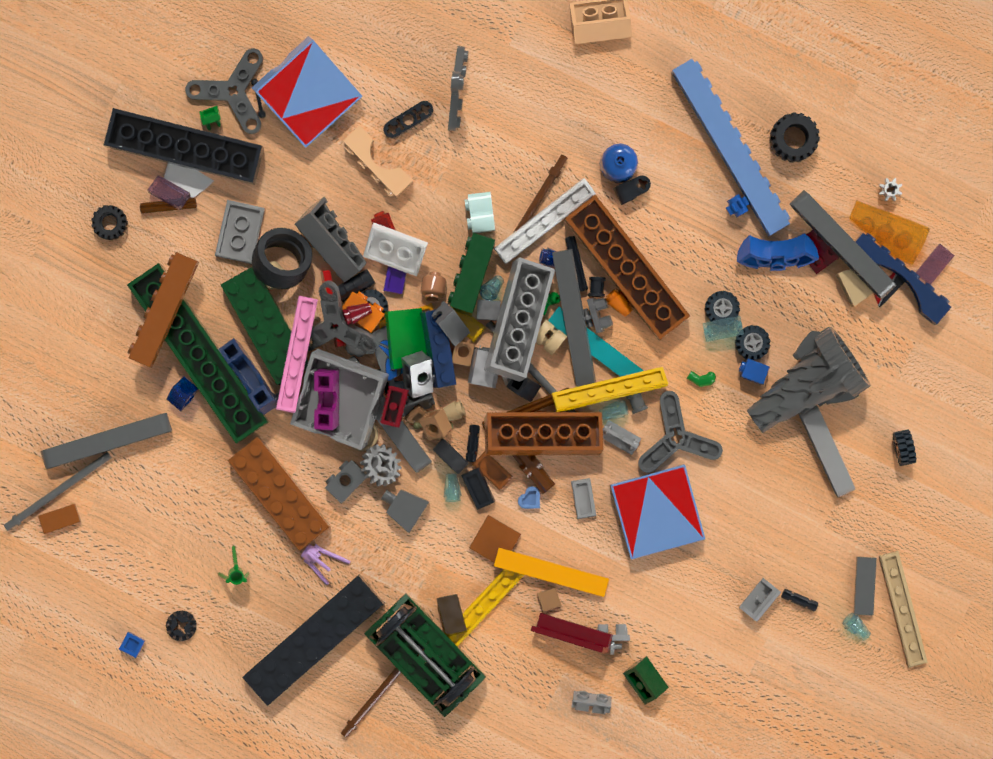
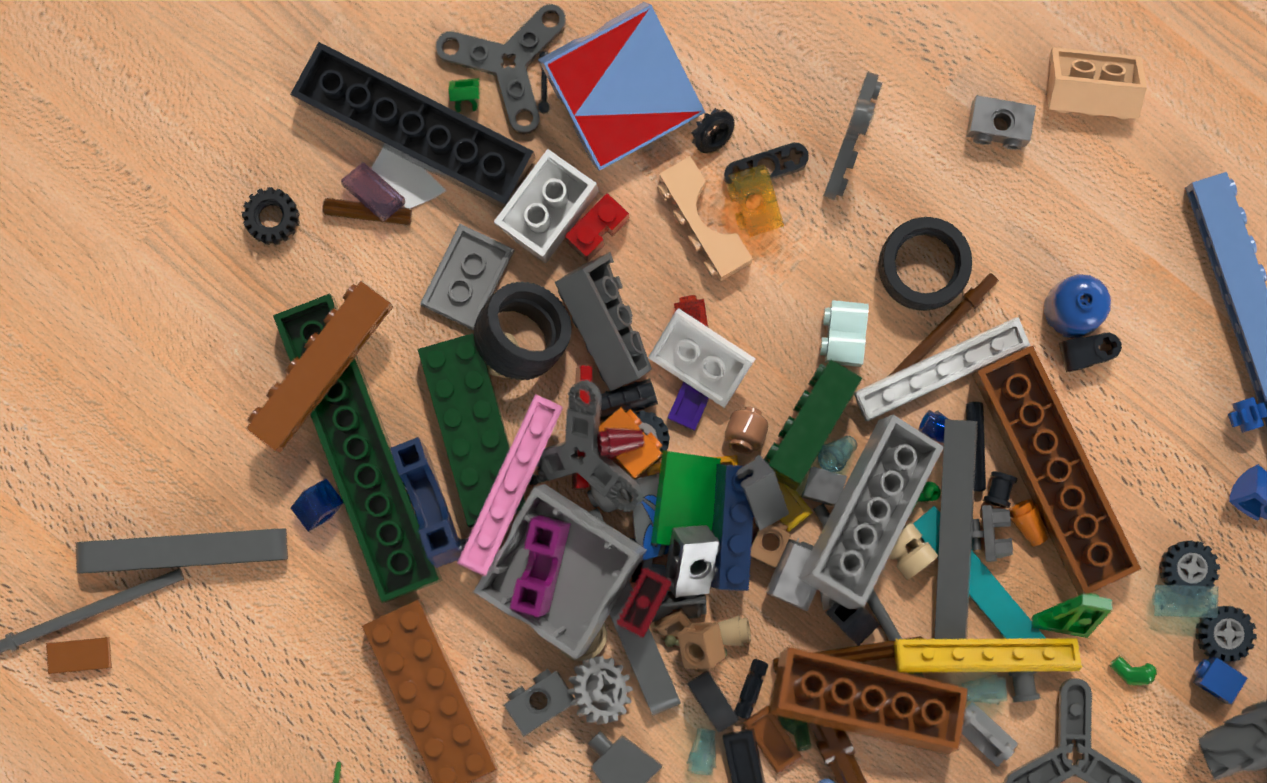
camera: 10 degrees right, 5 degrees down
(278, 177) = (547, 205): none -> white slope
(308, 186) = (603, 217): none -> red brick
(374, 108) = (718, 136): none -> black gear
(415, 150) = (767, 214): none -> clear yellow brick
(503, 141) = (948, 235): none -> black tyre
(507, 461) = (799, 730): none -> clear green arm
(558, 54) = (1017, 116): none -> flat silver brick
(657, 353) = (1075, 616): none -> green wing

